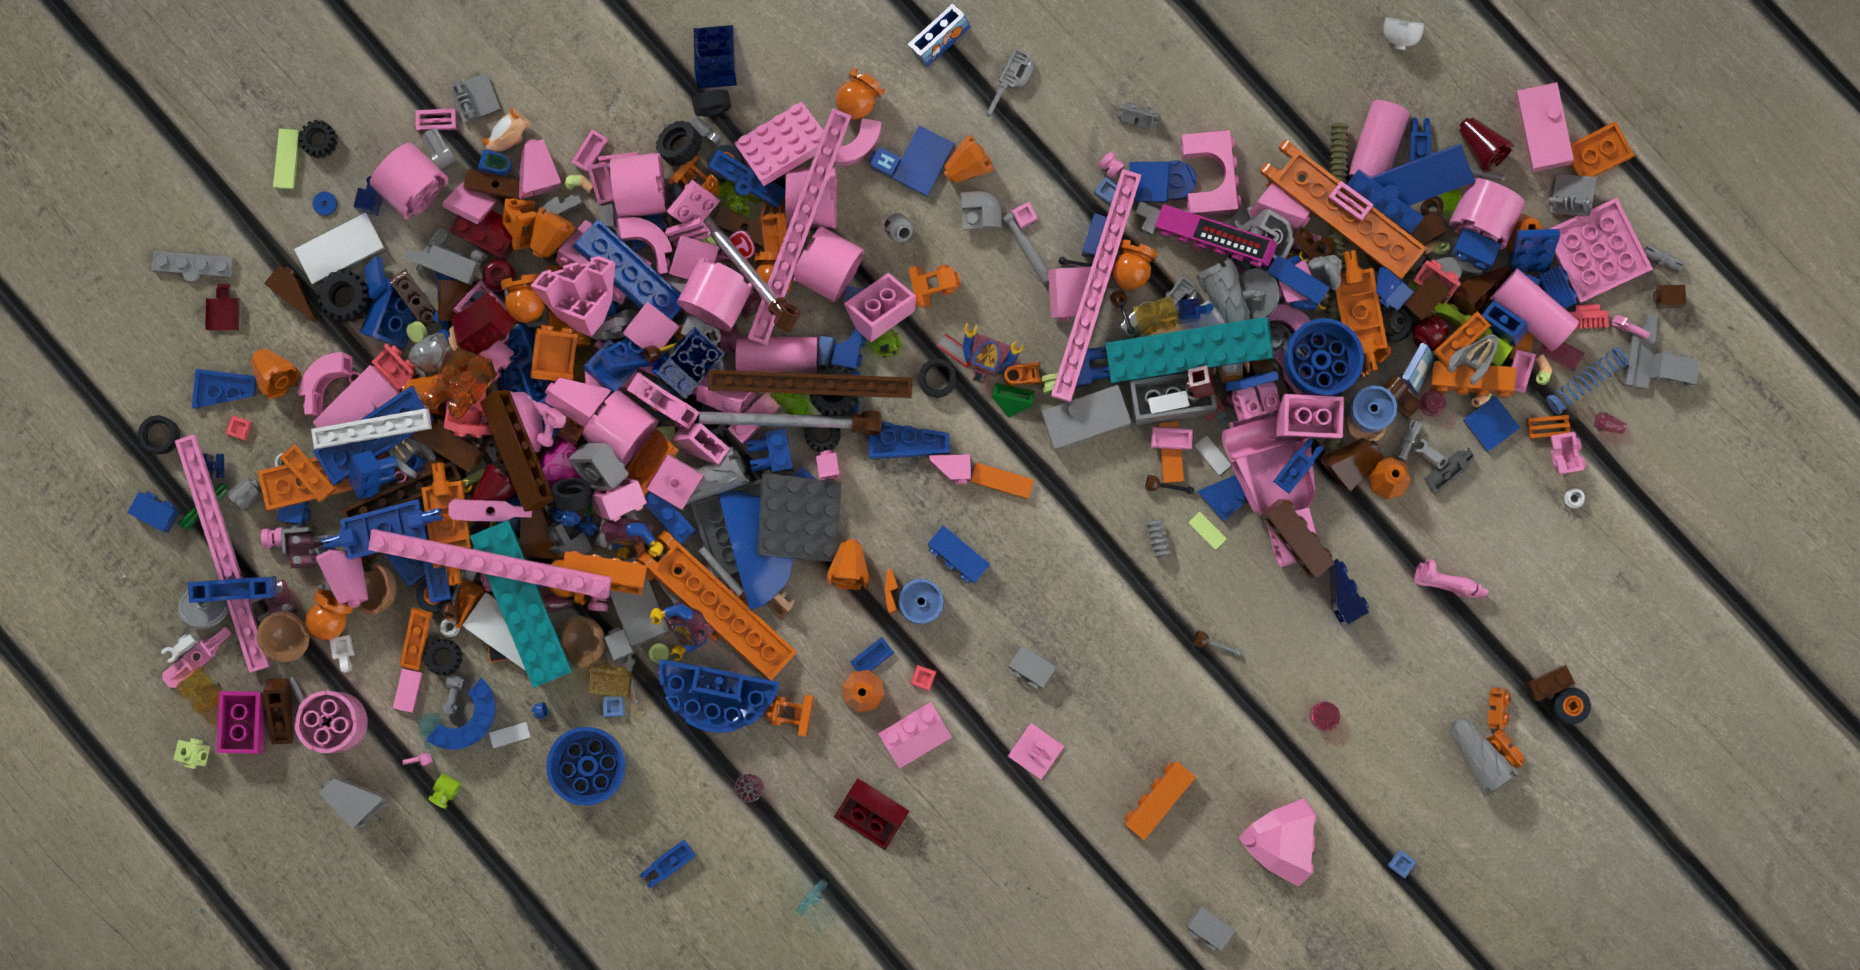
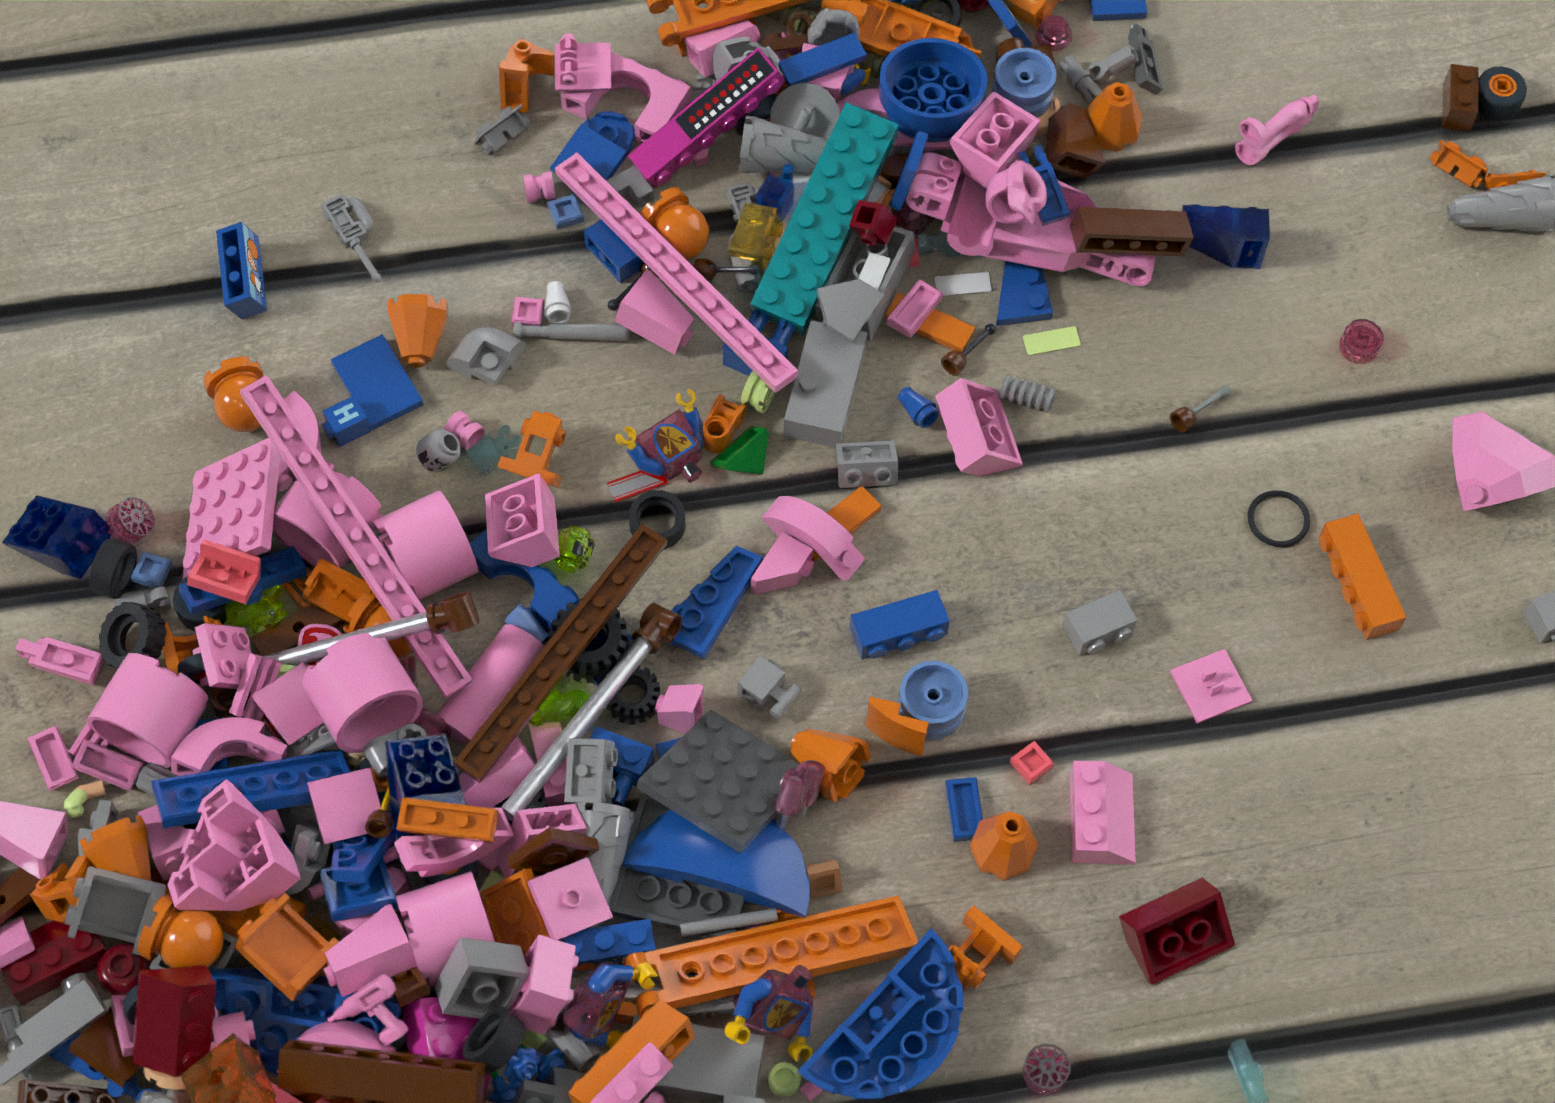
camera: 65 degrees left, 20 degrees down
(521, 250) = (113, 905): none -> light grey panel
(646, 113) = (61, 659): none -> bright pink hinge
(668, 391) = (447, 820): none -> orange tile
(692, 456) = (552, 851): none -> reddish brown tile
(728, 121) = (151, 570): none -> medium blue tile
(738, 169) = (225, 572): none -> coral bracket
(746, 90) = (128, 520): none -> clear pink wheel
(753, 445) = (590, 771): none -> light grey bracket
(815, 563) = (798, 790): none -> clear pink piece
(873, 502) = (764, 684): none -> light grey brick
(920, 255) = (487, 451): none -> clear light blue plate
(922, 232) = (466, 431): none -> bright pink wheel
(982, 473) = (816, 530): none -> bright pink arch
(1038, 229) = (557, 305): none -> white cone
(1050, 473) = (867, 464): none -> light grey bracket
(1106, 481) = (920, 409): none -> blue cone
(1114, 524) = (977, 428): none -> bright pink slope
(1136, 402) = (848, 306): none -> light grey slope
(1151, 731) = (1260, 536): none -> black tyre
(1172, 99) = (514, 73): none -> orange tile
(1207, 136) = (582, 65): none -> bright pink hinge
(1274, 457) = (1016, 194): none -> bright pink piece

